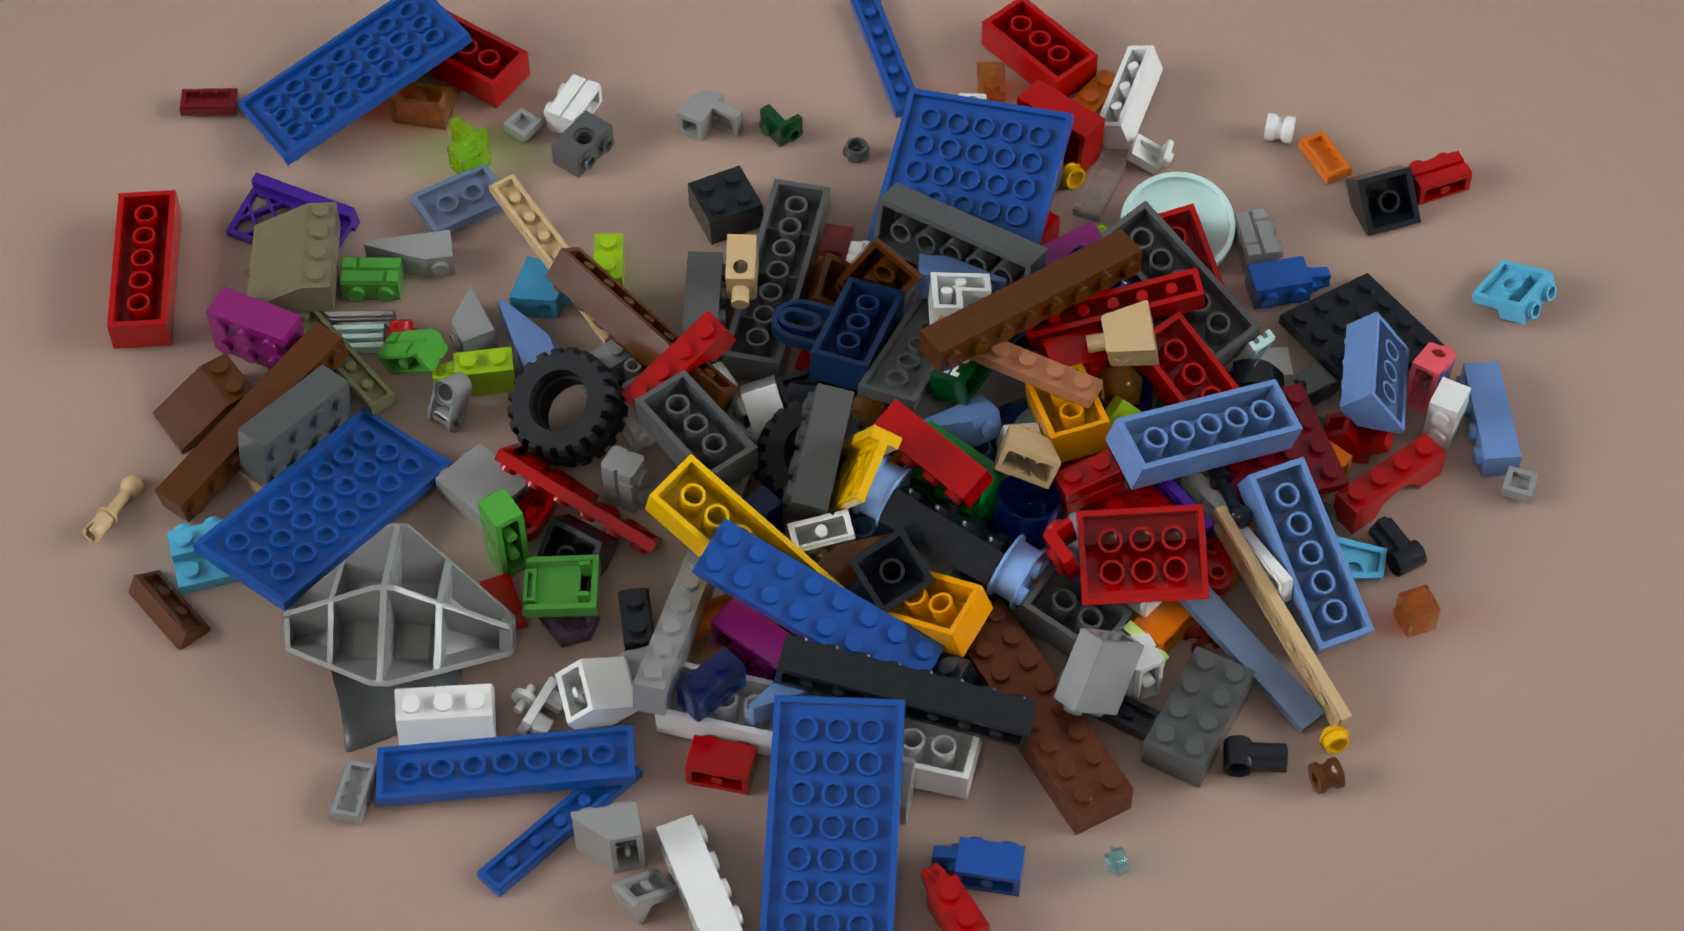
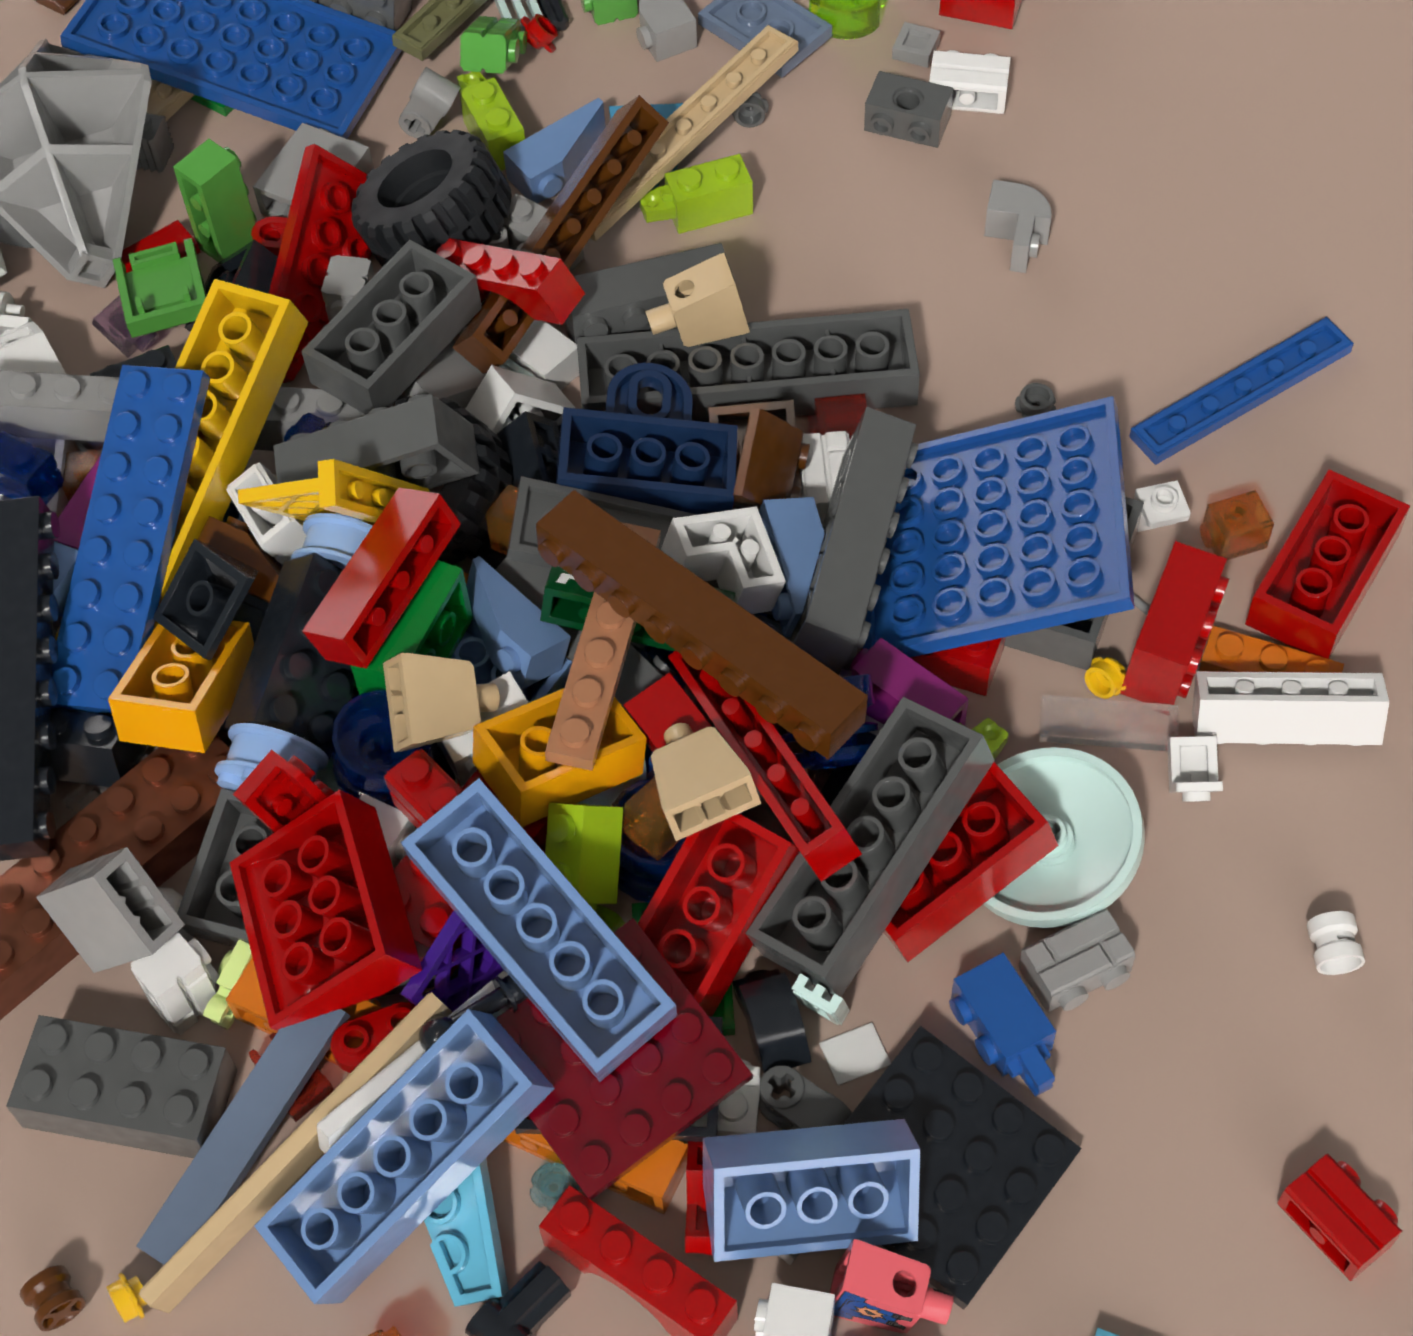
camera: 75 degrees right, 5 degrees up
(472, 326) = (564, 89): light grey slope -> none
(725, 204) = (864, 275): black brick -> none
(780, 130) = (1031, 303): dark green bracket -> none
(1132, 718) = (113, 998): black plate -> none
(1244, 756) = (69, 1176): black piece -> none
(1325, 157) = (1307, 1028): orange plate -> none
(1384, 199) = (1250, 1138): black slope -> none

